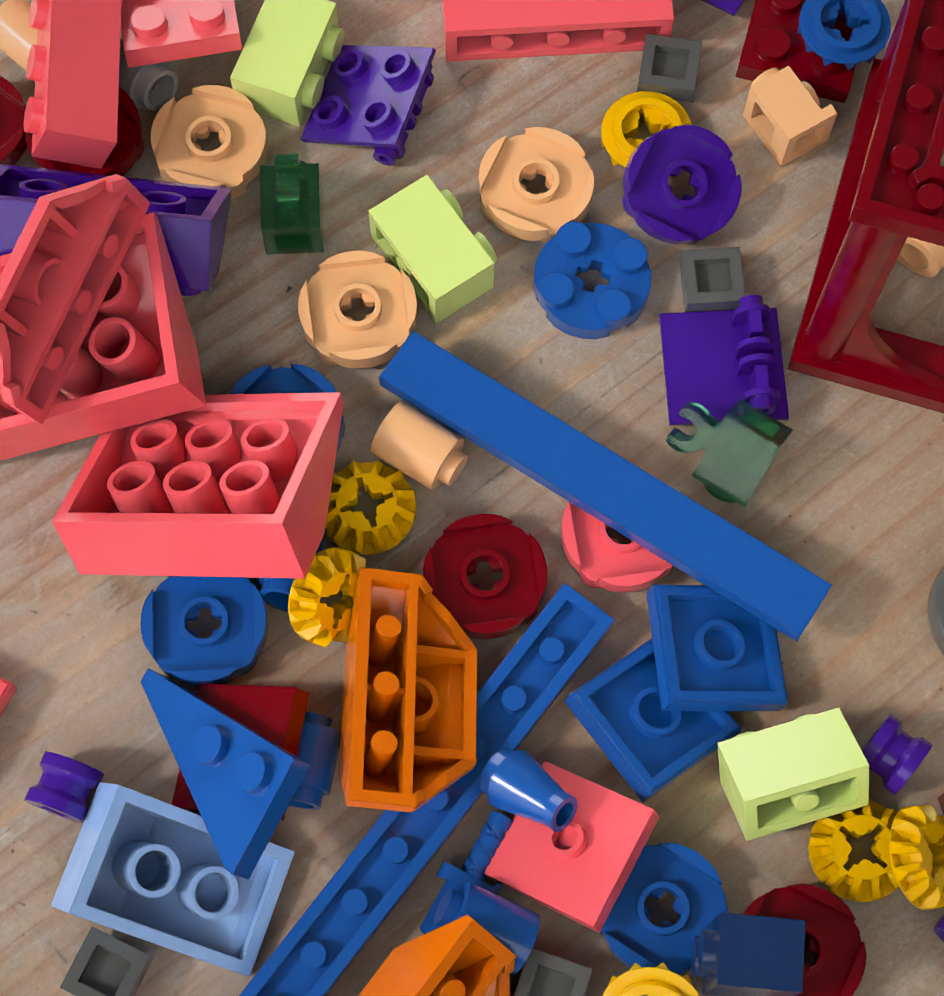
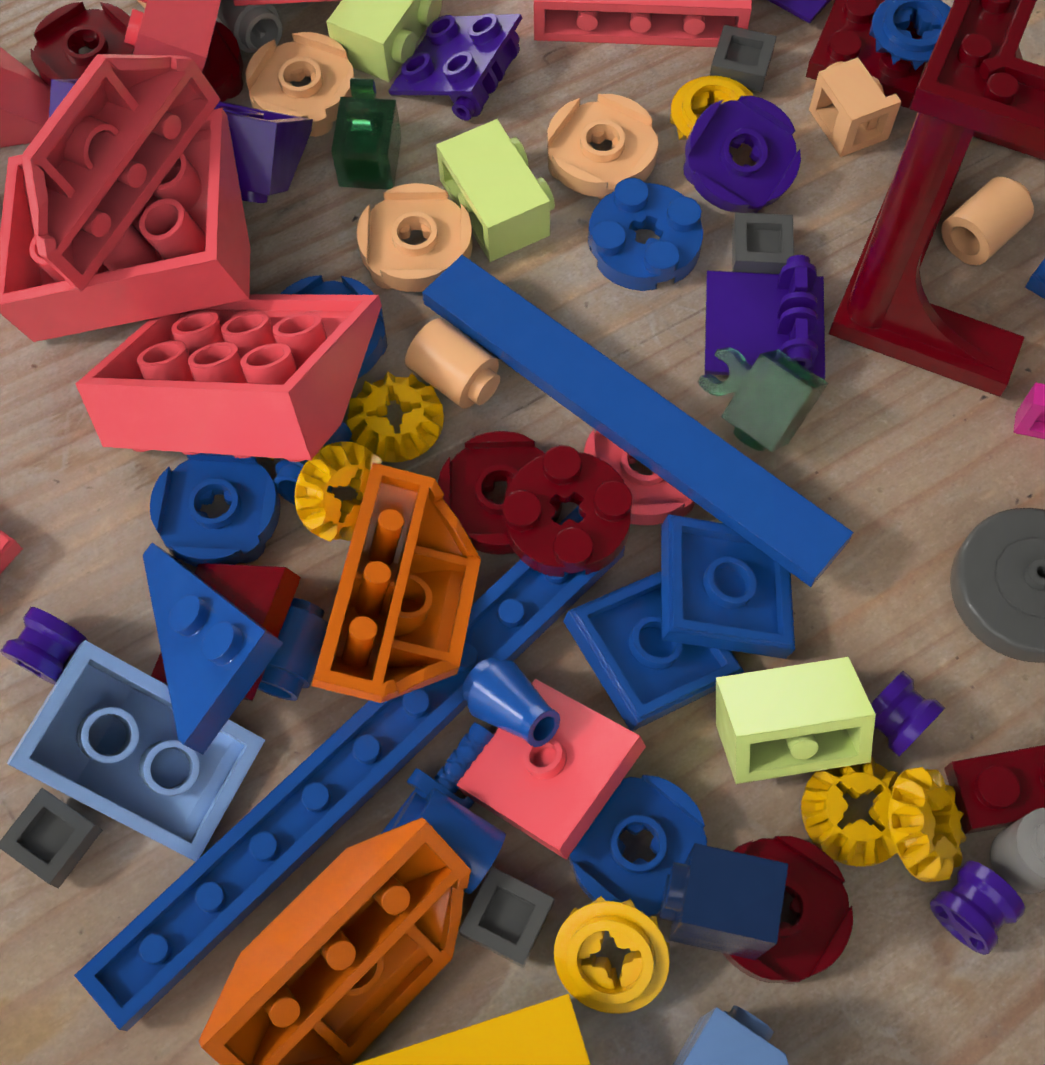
camera: 10 degrees right, 5 degrees down
(566, 628) = (573, 546): none -> dark red plate

